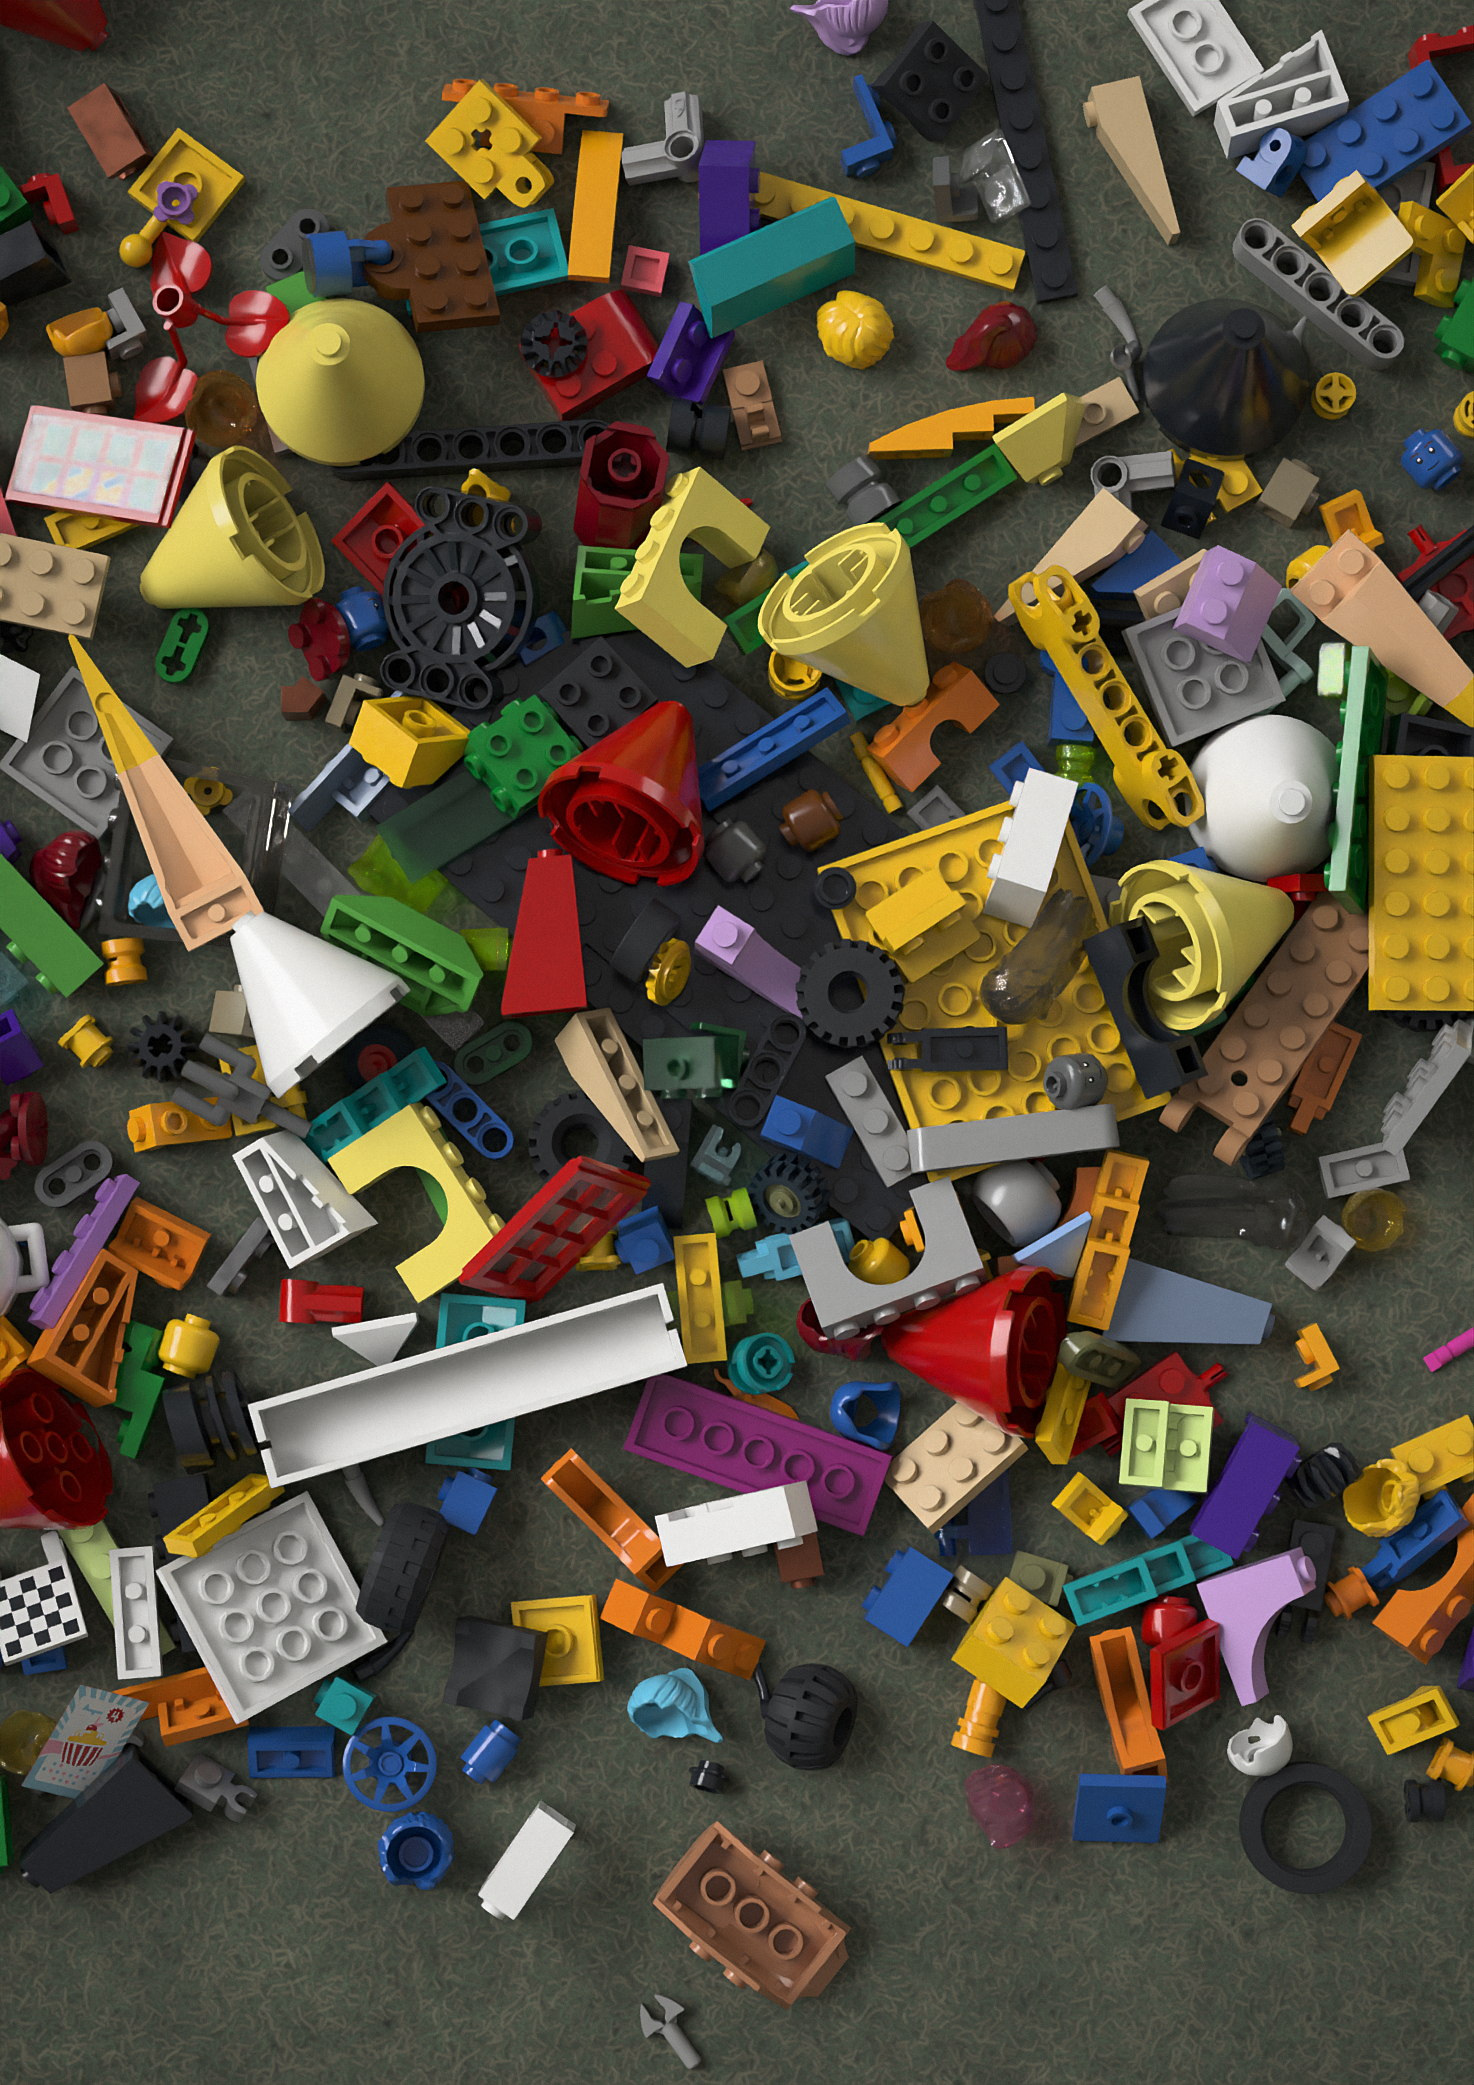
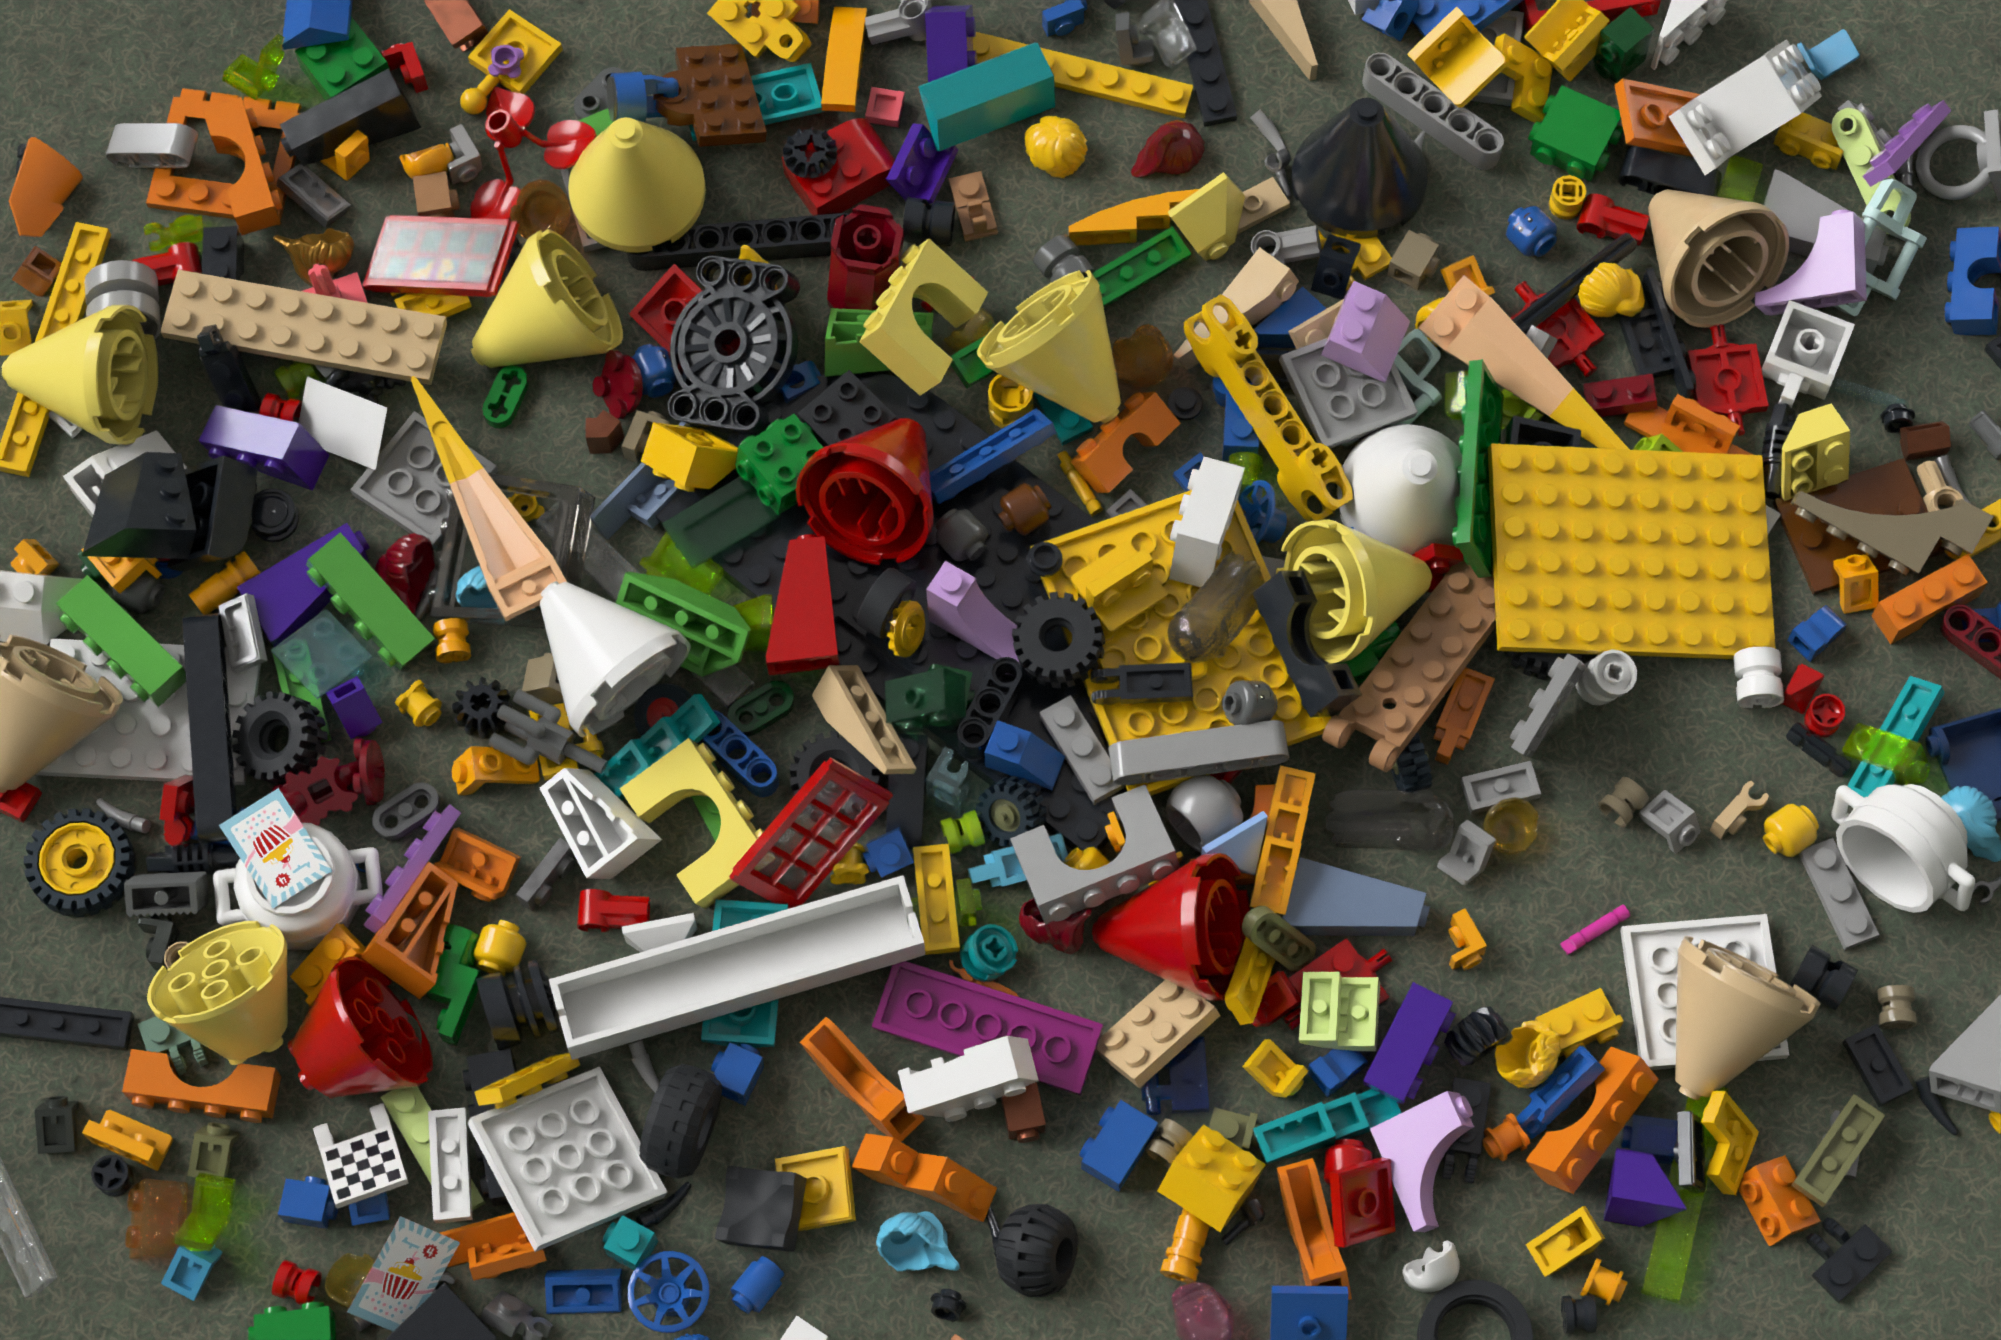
camera: 10 degrees right, 15 degrees down
(882, 1429) = (1094, 978): blue hair -> none
(1334, 387) = (1450, 179): yellow wheel -> none

